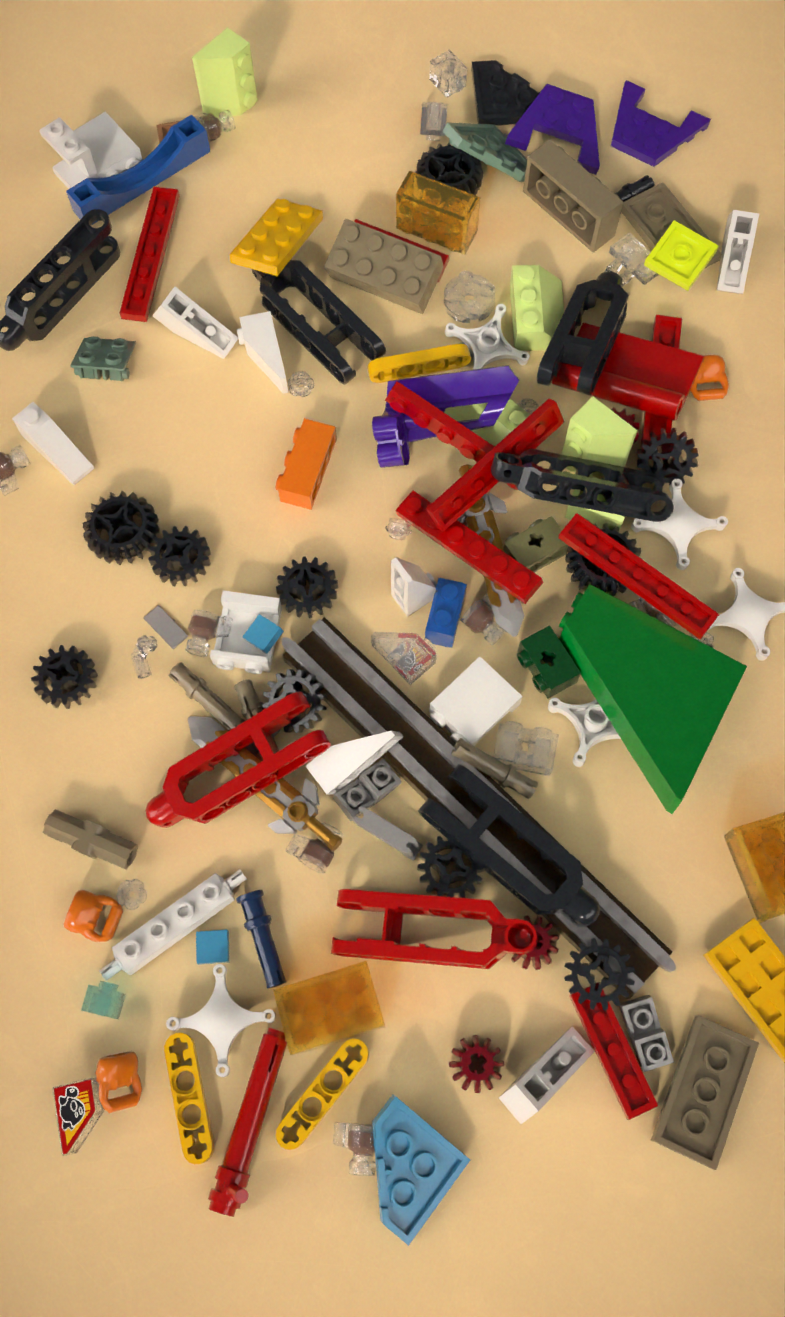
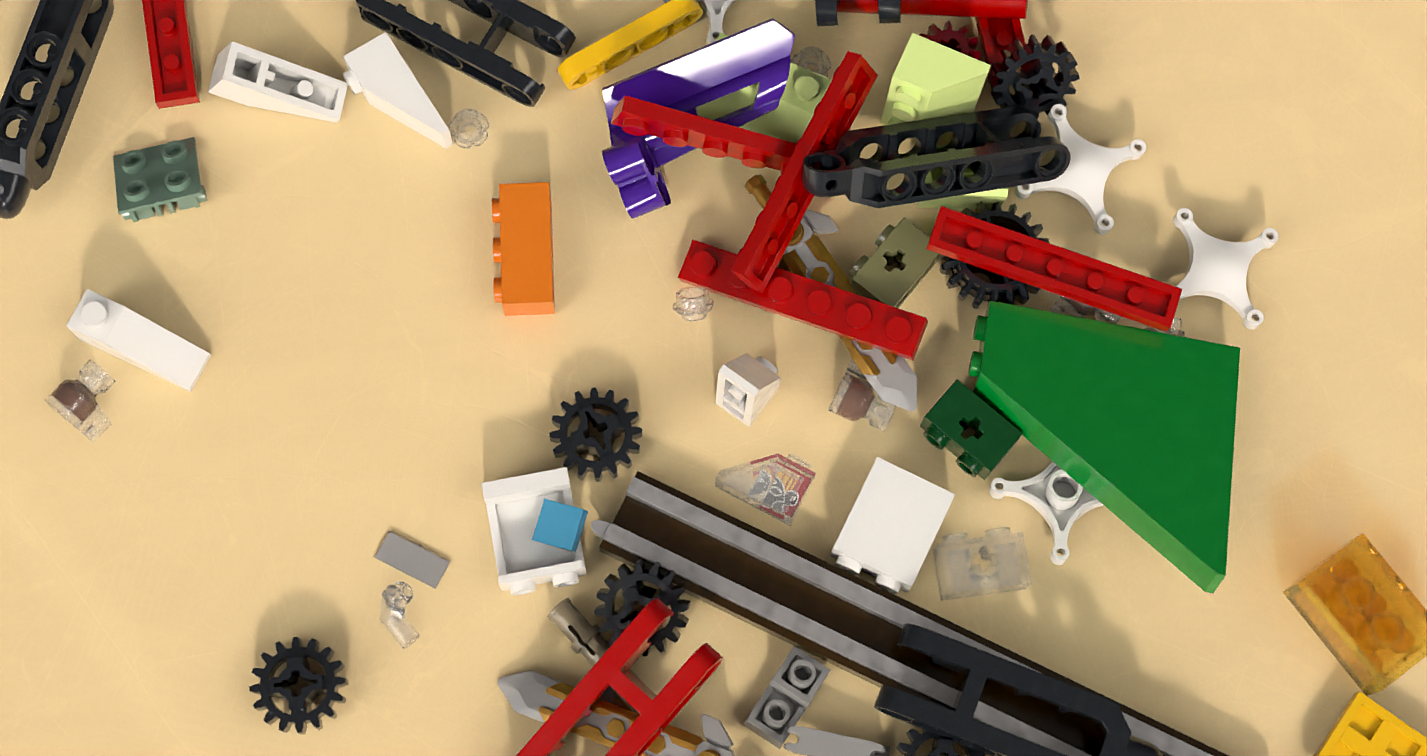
camera: 25 degrees left, 5 degrees up
(124, 536) = (274, 434): black gear -> none
(181, 543) = (384, 463): black gear -> none
(197, 690) = (505, 641): dark tan pin -> none
(204, 627) = (473, 542): clear piece -> none
(347, 760) = (750, 666): white slope -> none
(445, 612) = (805, 407): blue brick -> none
(504, 774) = (969, 611): dark tan pin -> none

